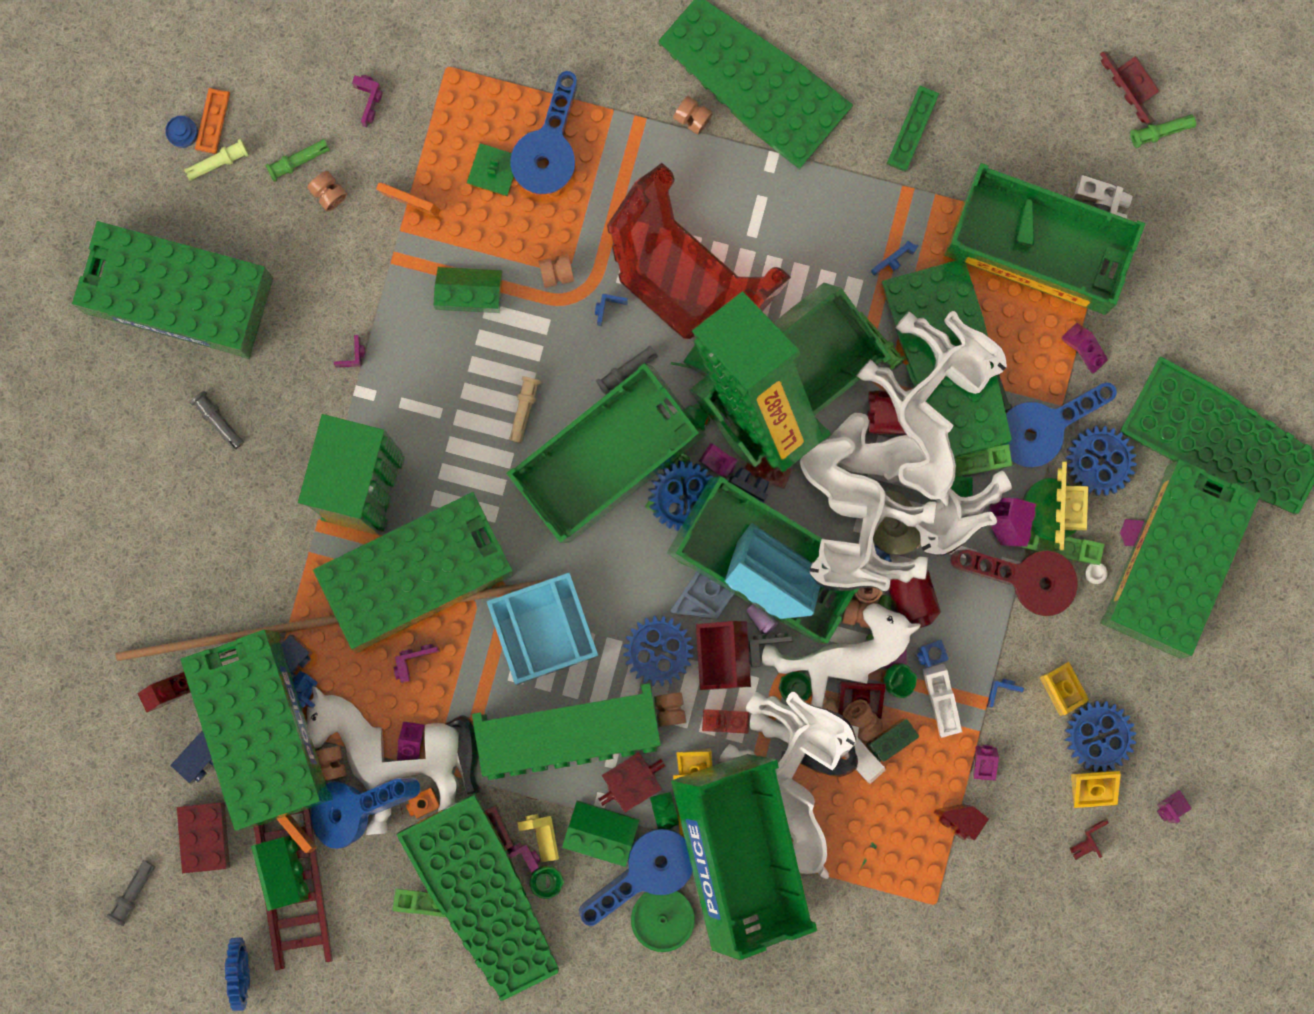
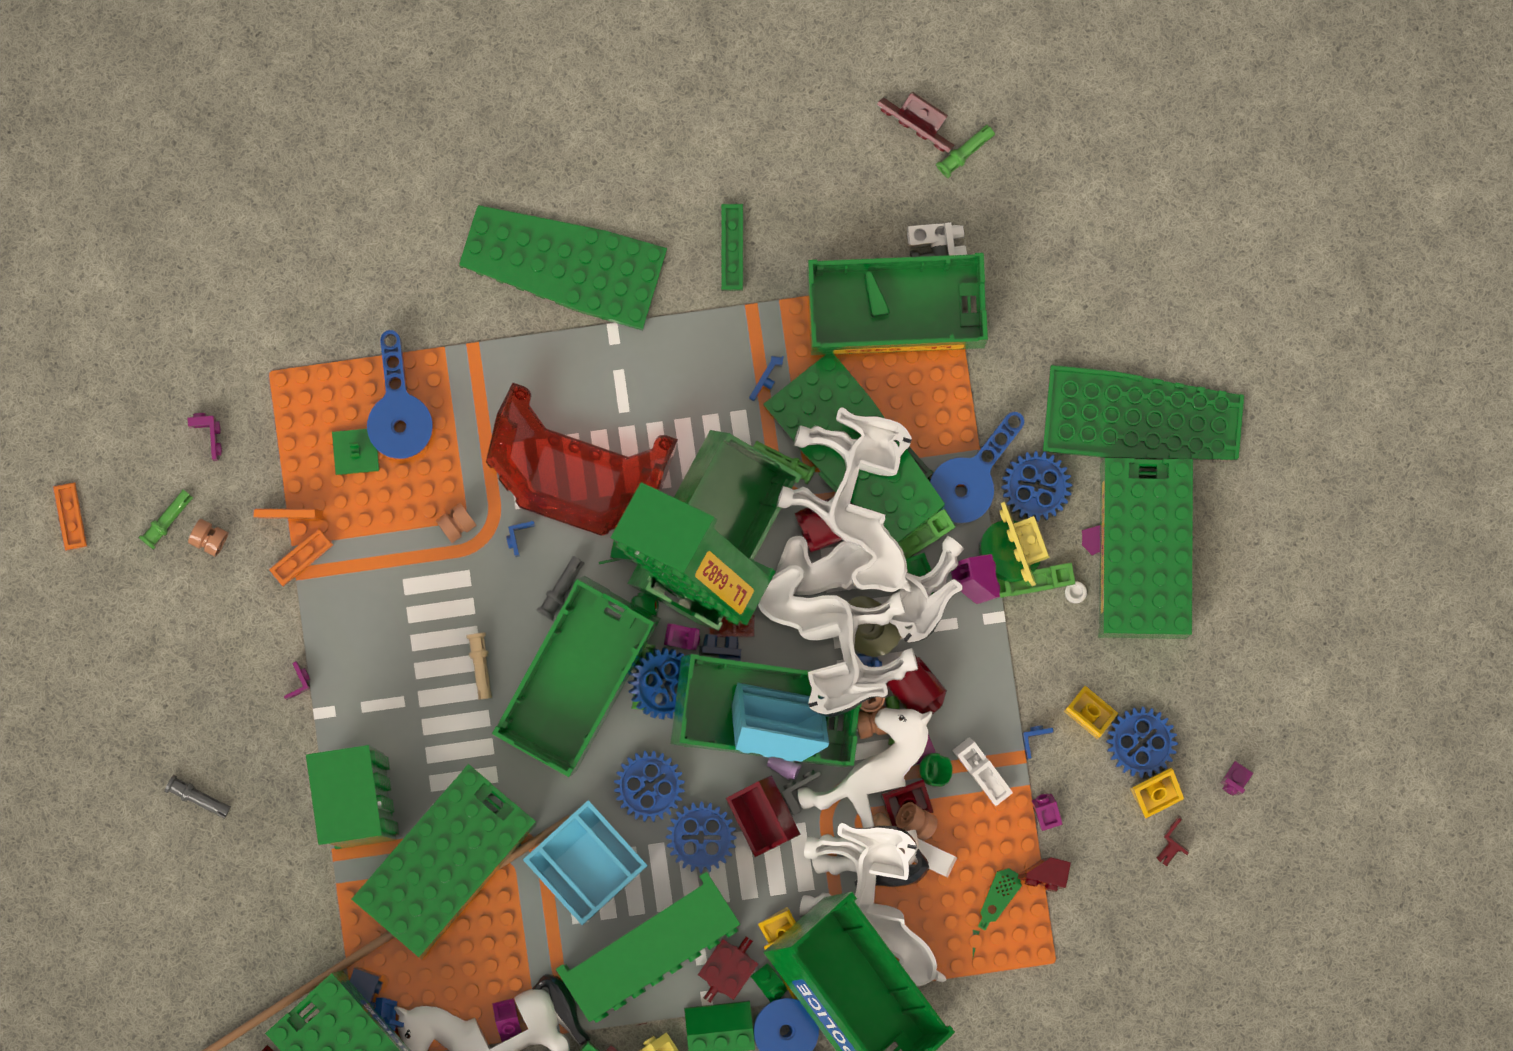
camera: 25 degrees left, 0 degrees up
(173, 289) = (105, 692): green piece -> none
(181, 131) = (45, 539): blue plate -> none
(225, 156) = (97, 544): yellowish green pin -> none
(401, 670) = (470, 956): magenta bracket -> none
(403, 244) = (301, 557): none -> orange tile
(468, 290) = (380, 575): green slope -> none
(625, 564) = (636, 769): none -> blue gear
(670, 709) = (735, 887): nougat wheel -> none
(693, 115) = (521, 321): nougat wheel -> none
(702, 598) = (721, 771): sand blue wing -> none
(725, 721) = (791, 876): clear red slope -> none
(796, 682) = (841, 812): green hair -> none
(892, 740) = (951, 828): dark green panel -> none
(906, 824) = (998, 899): none -> green piece
(923, 654) = (949, 739): blue bracket -> none
(1026, 578) = (1013, 624): dark red beam -> none
(1087, 346) = (978, 385): magenta bracket -> none

